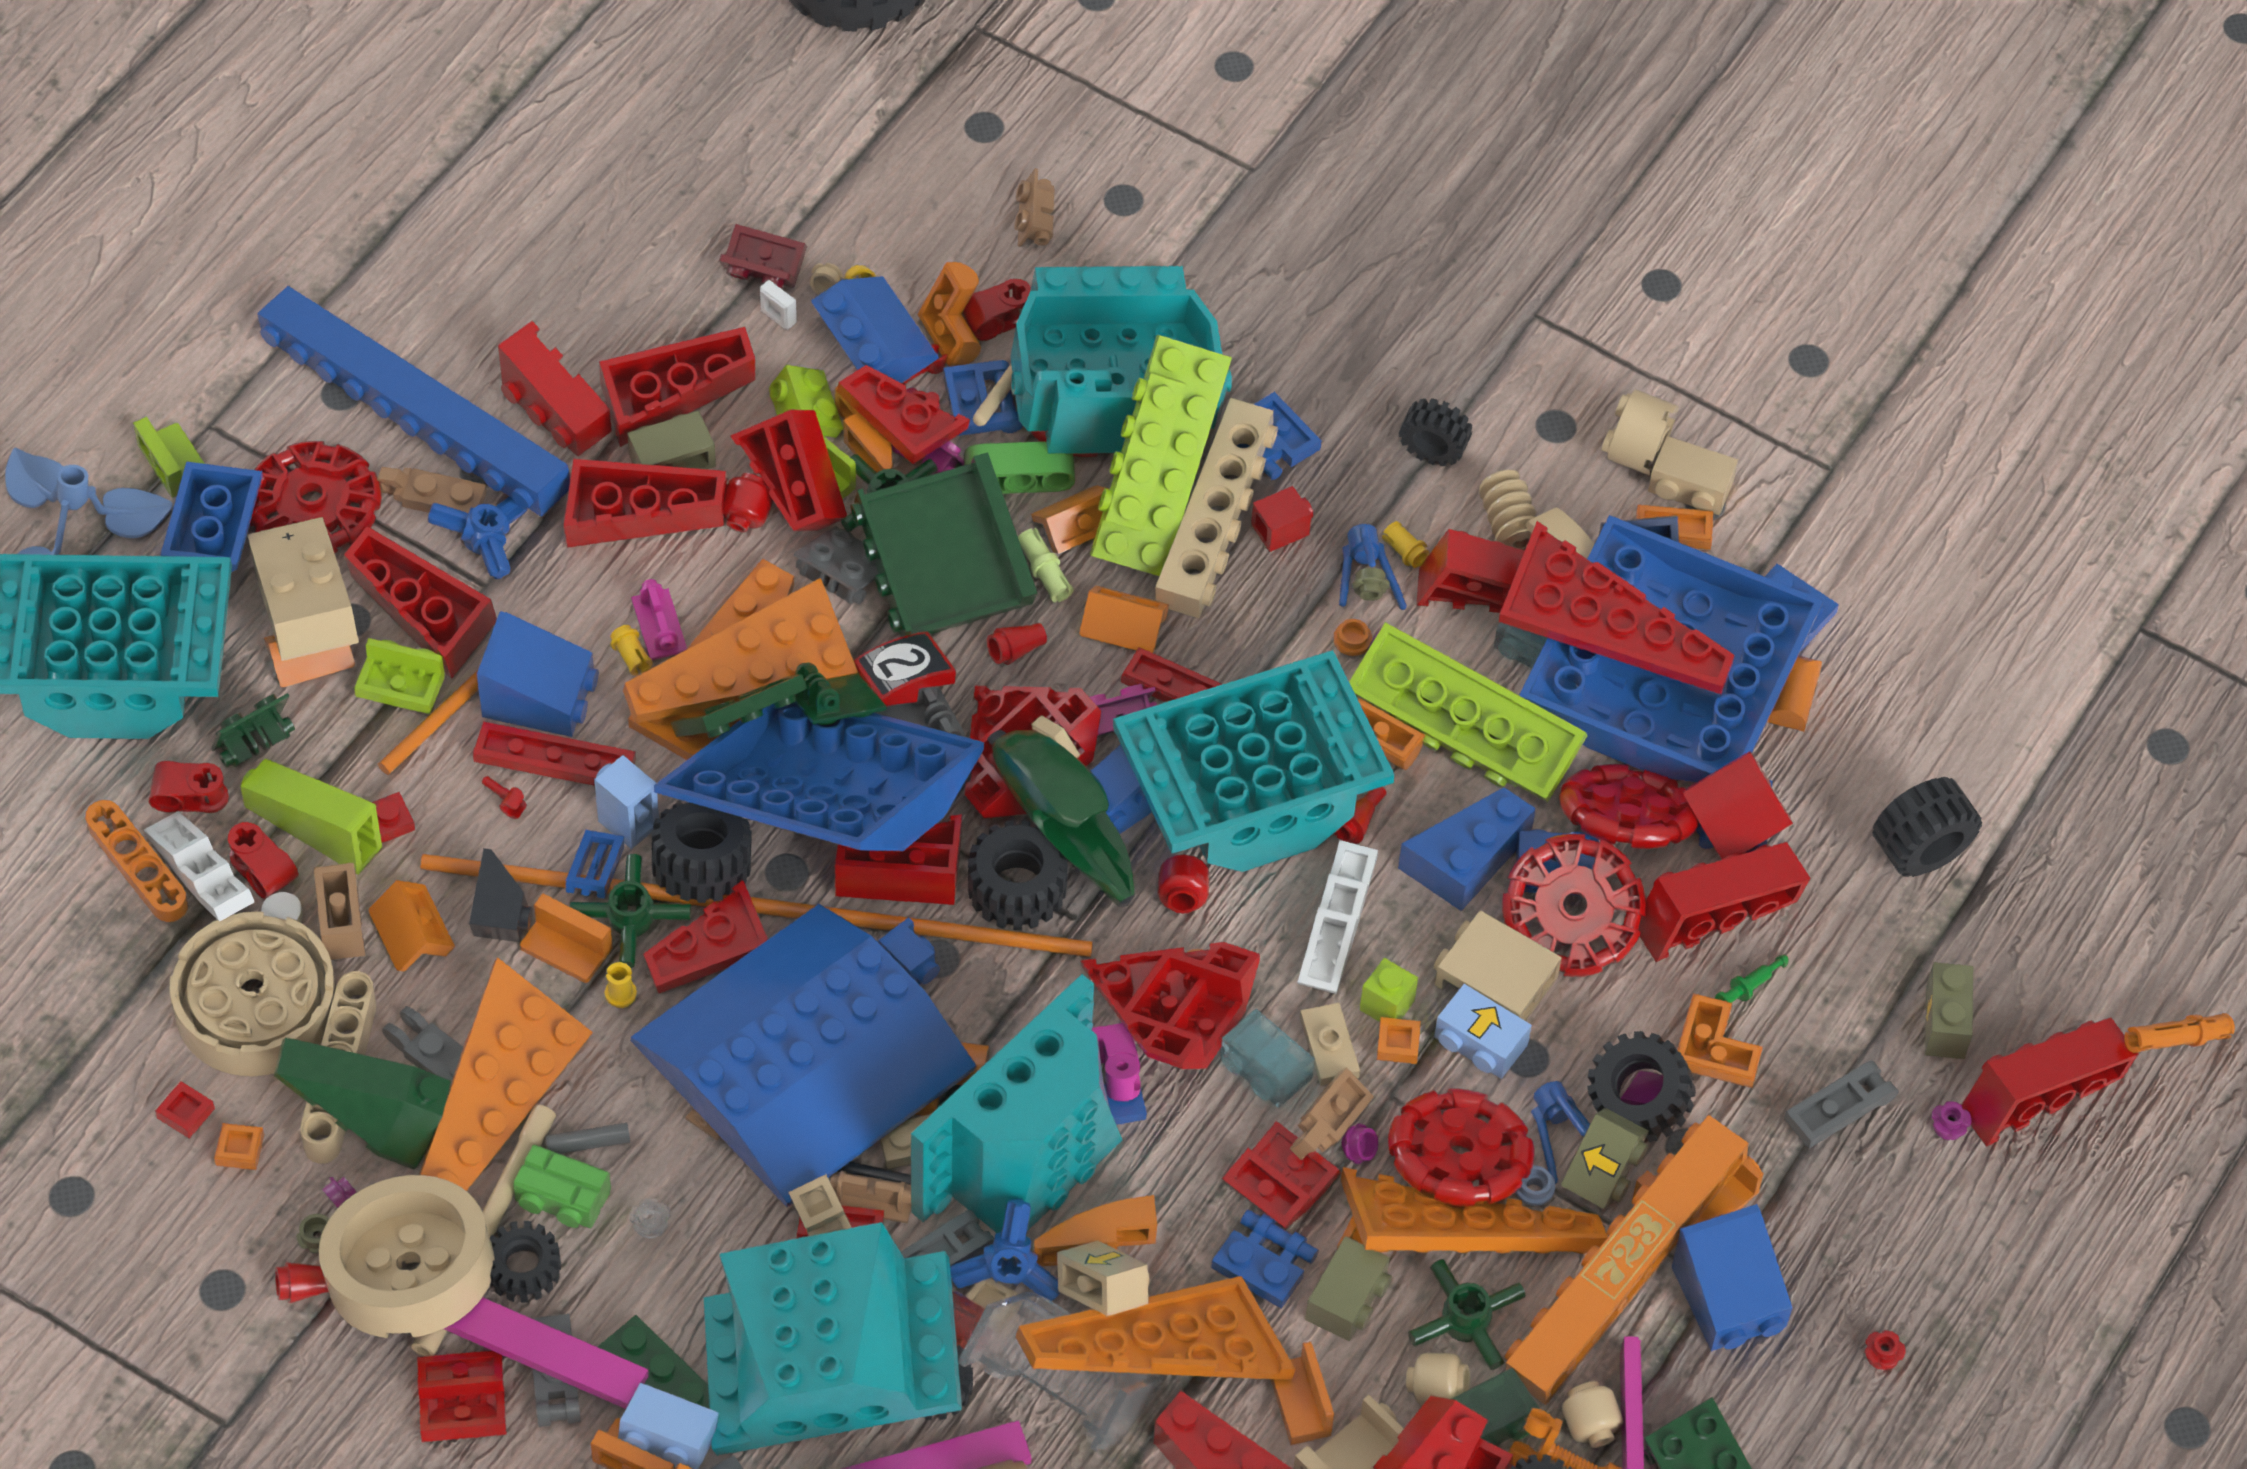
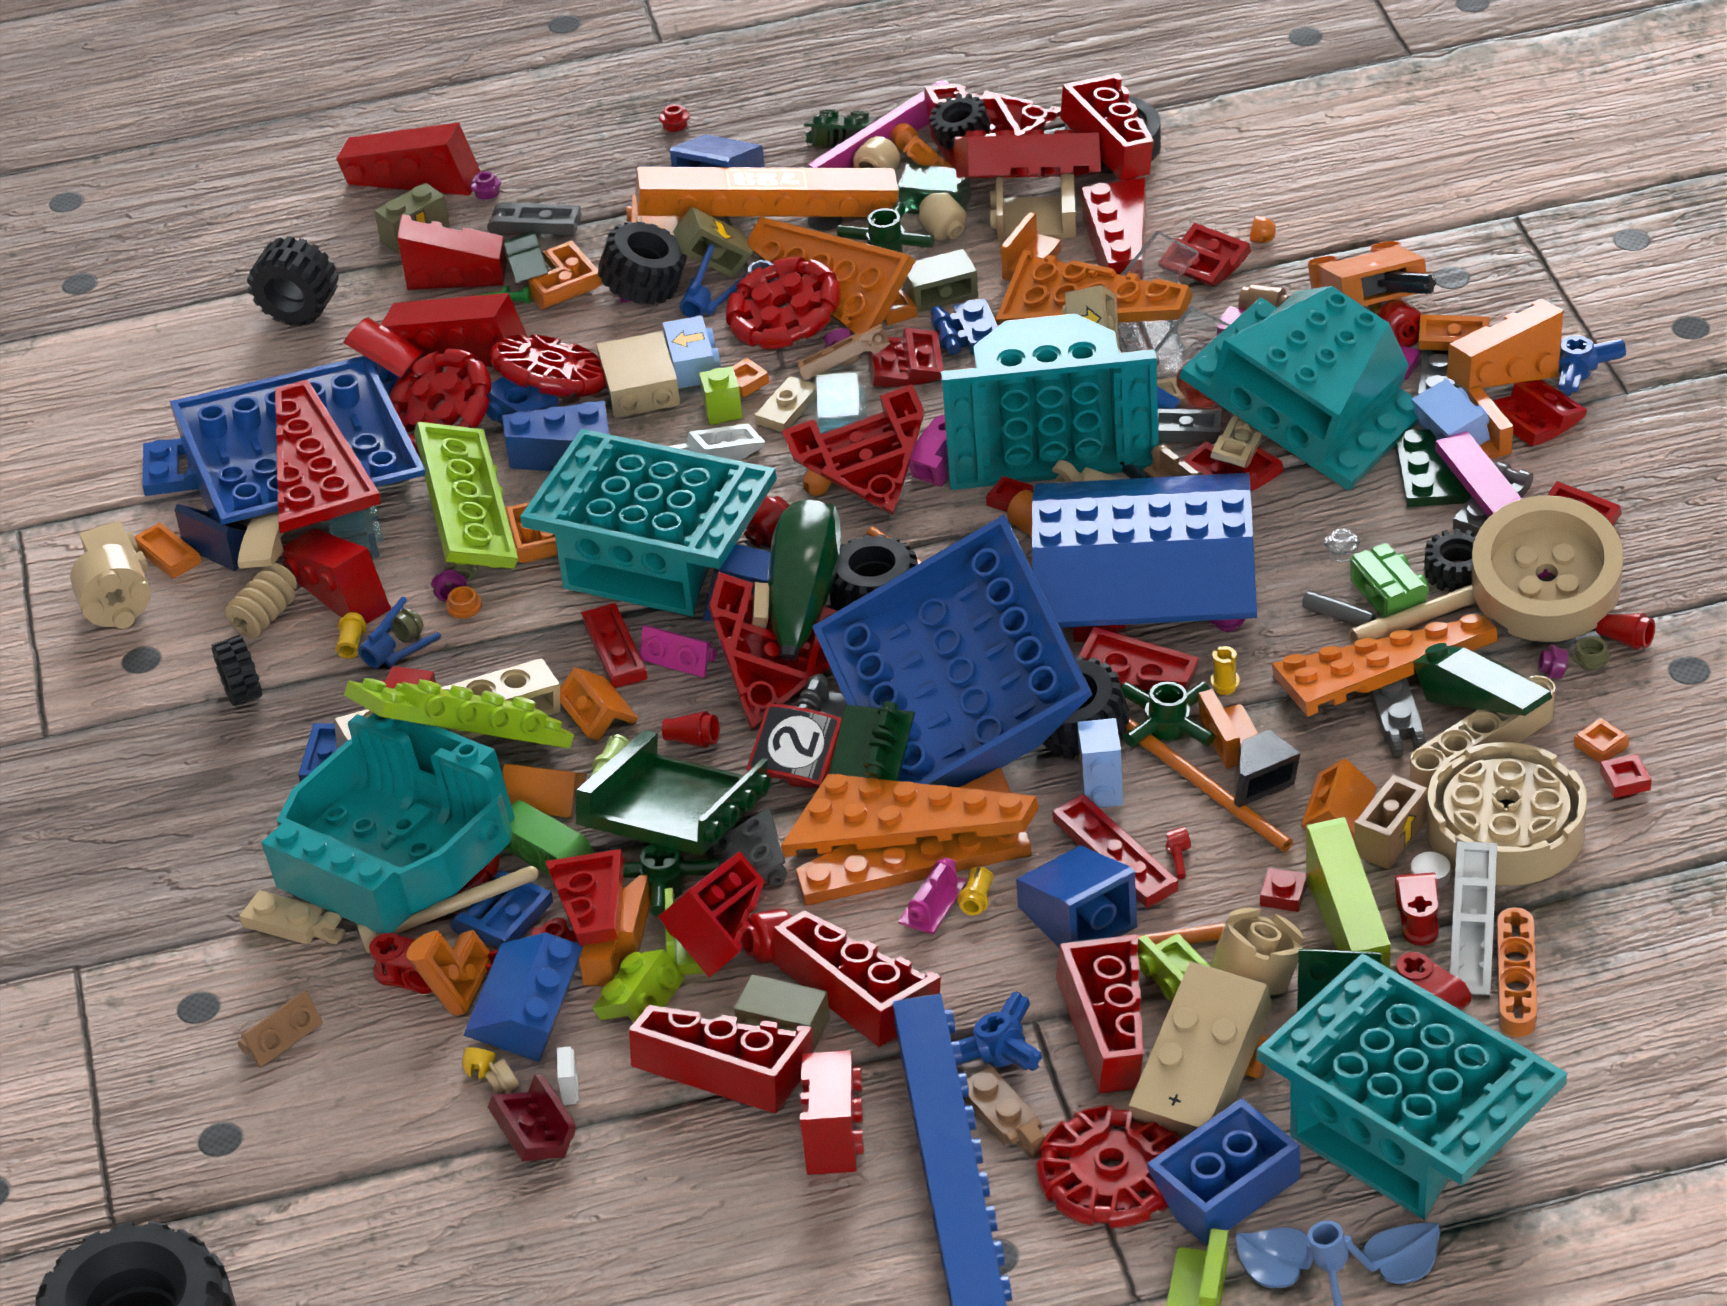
camera: 130 degrees left, 15 degrees down
(327, 692) = (1259, 948): none -> tan brick
(590, 883) = (1165, 761): blue tile -> none
(748, 708) = (954, 757): dark green wing -> none
(1784, 1036) = (525, 256): none -> slope
(1842, 979) = (449, 257): none -> red wedge
(2192, 1031) = (300, 140): orange pin -> none

